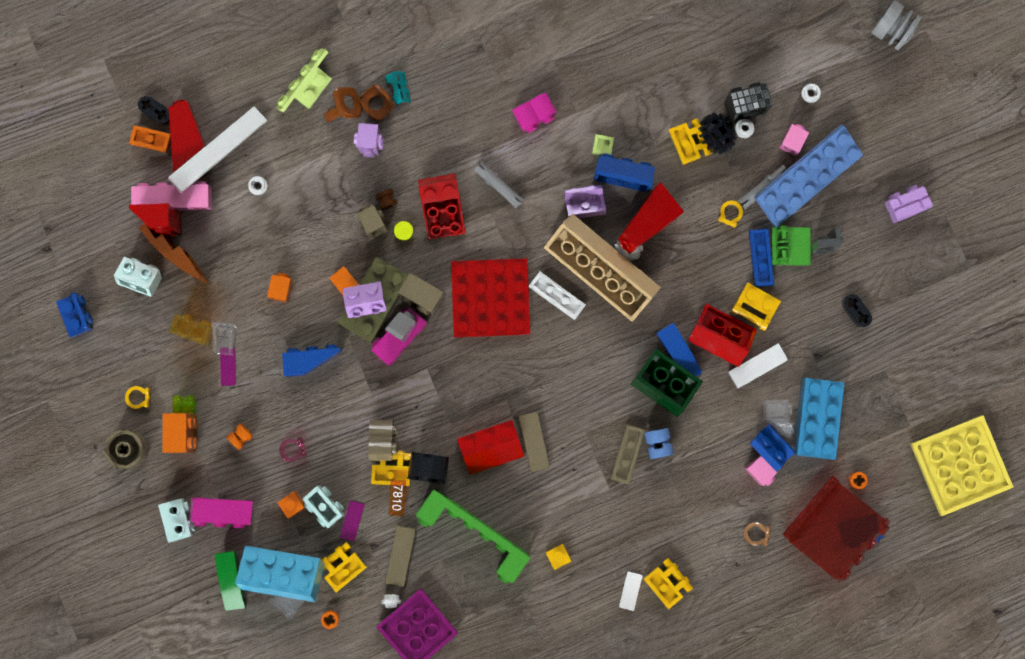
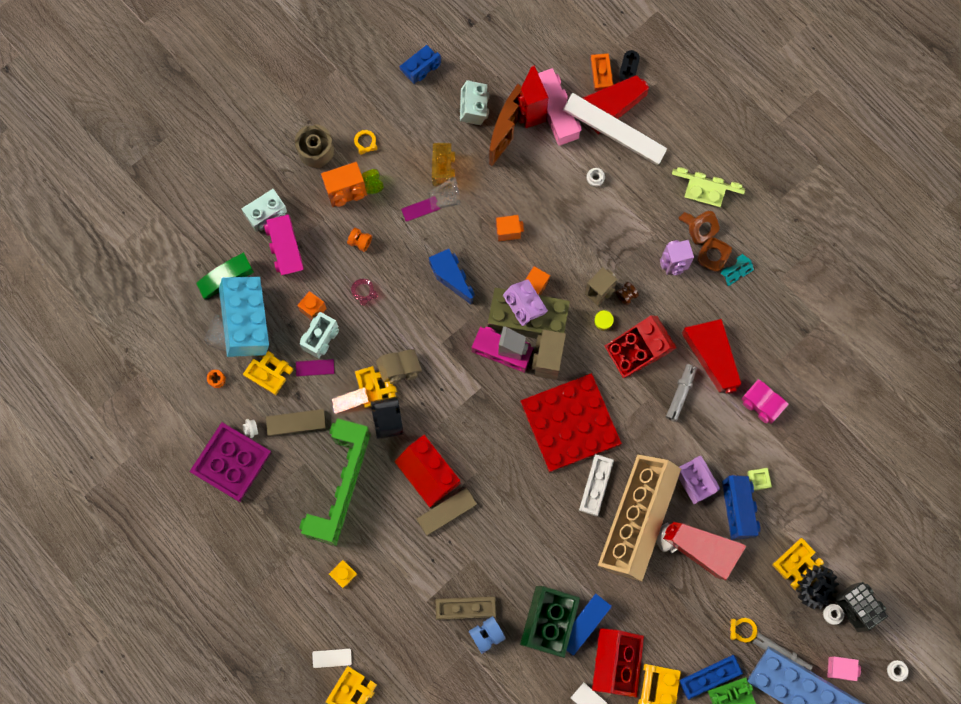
camera: 70 degrees right, 10 degrees down
(472, 140) = (714, 353): none -> red slope

